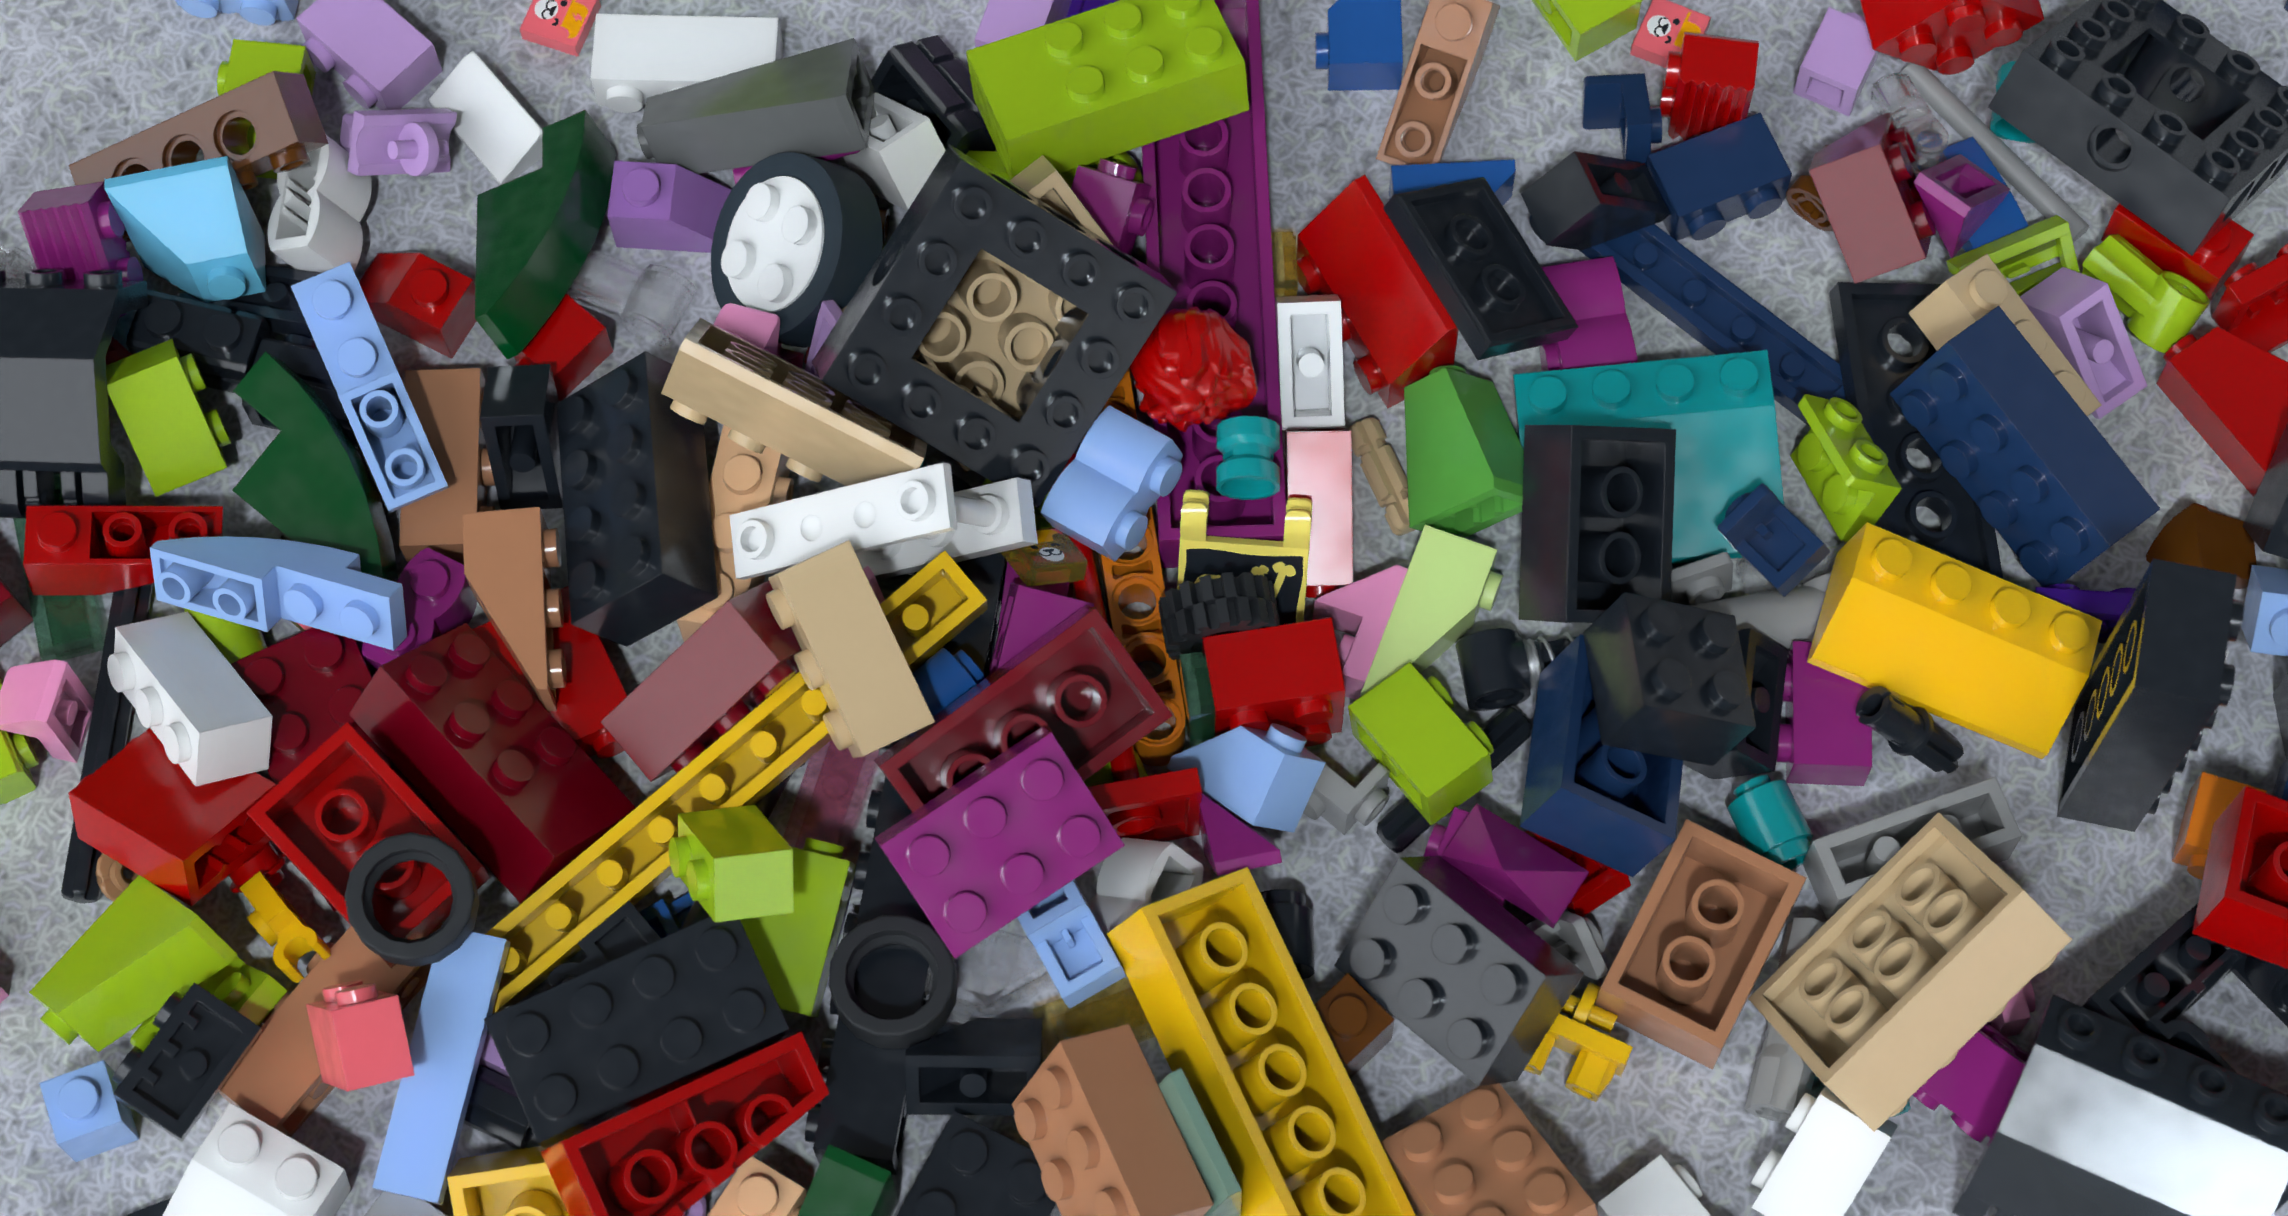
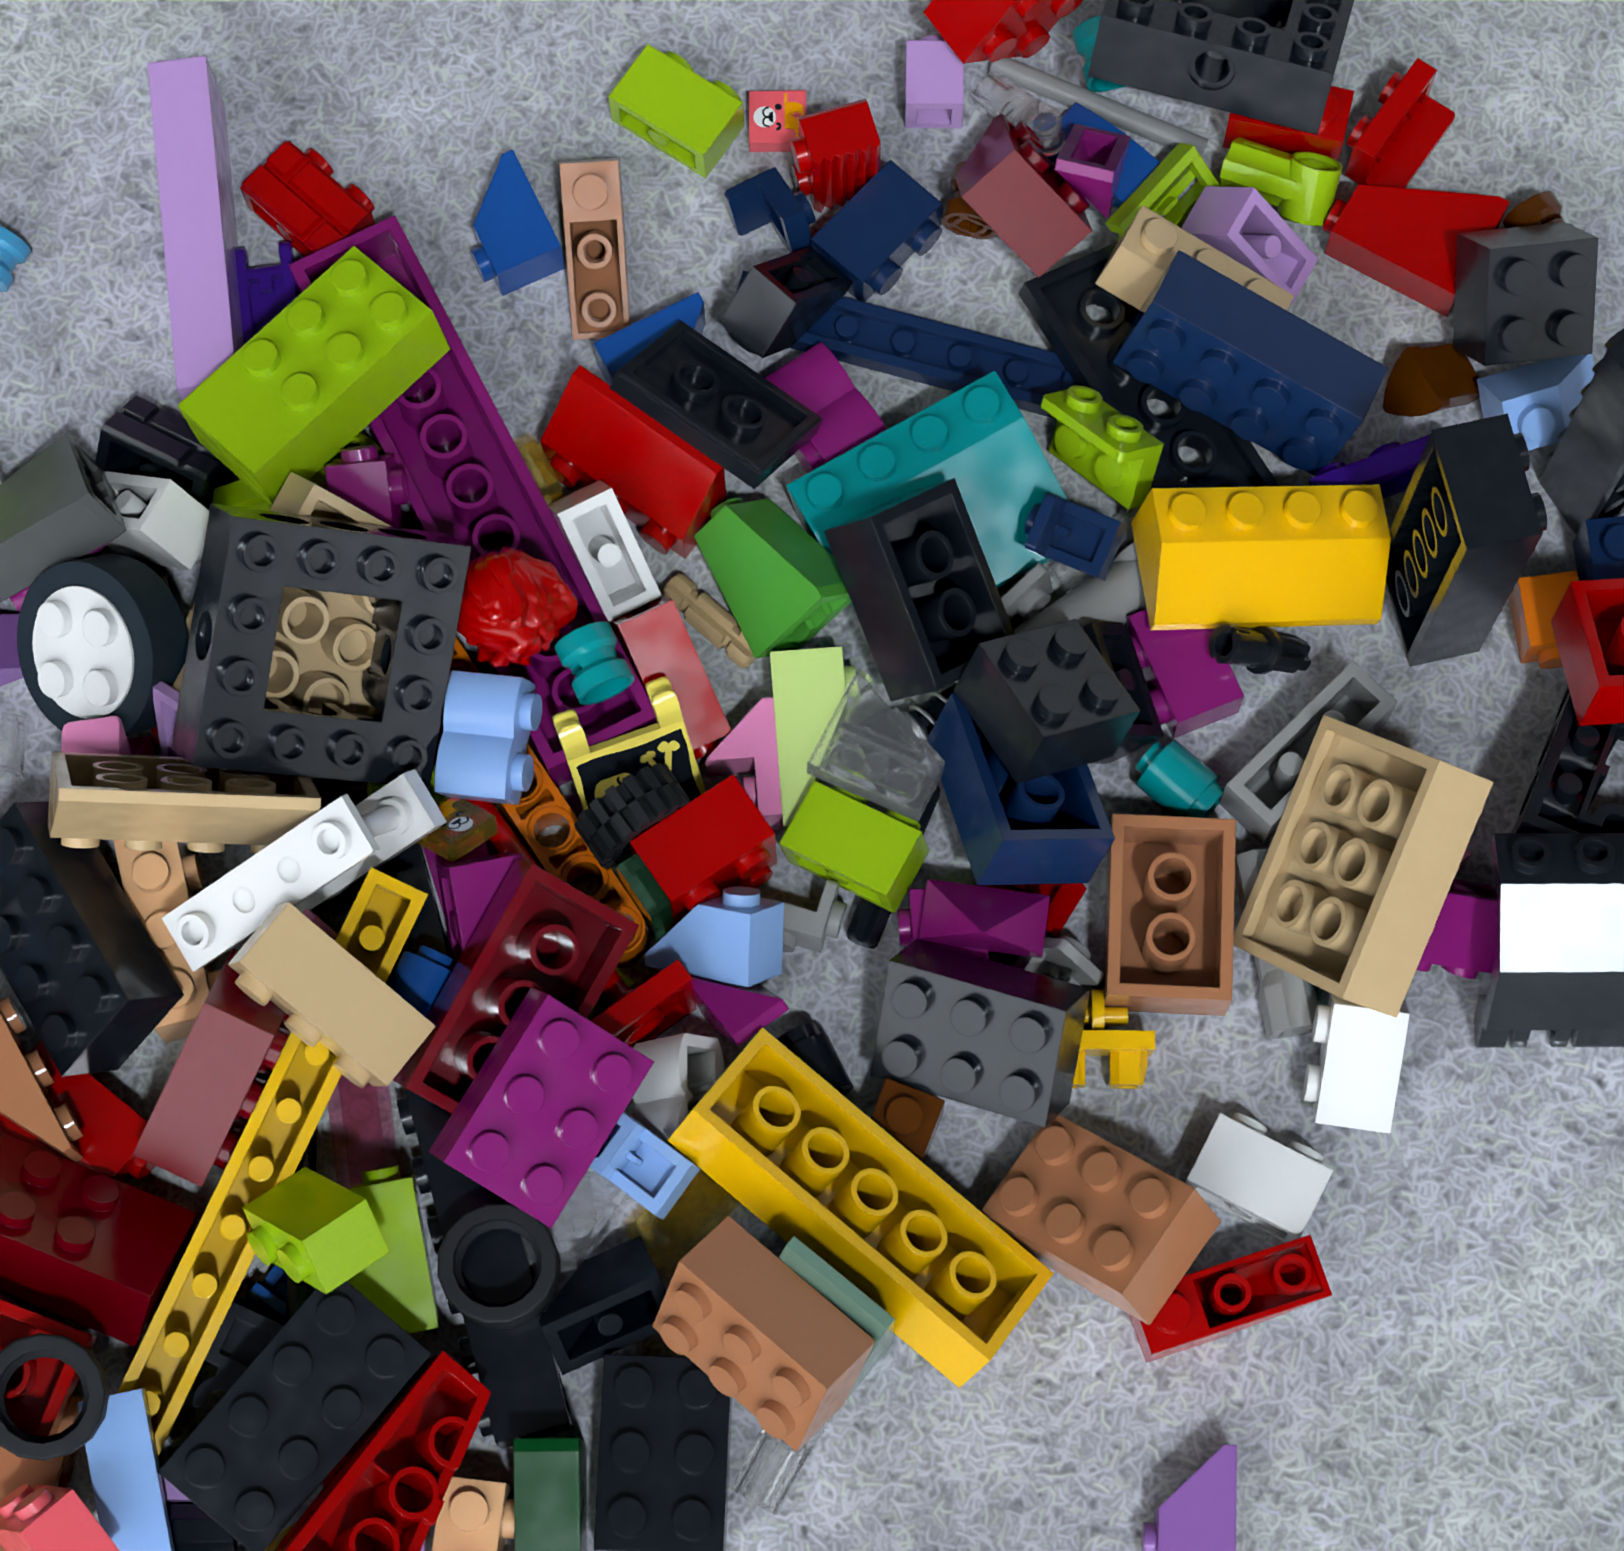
camera: 25 degrees left, 5 degrees up
(1481, 661) = (876, 753): none -> clear wing

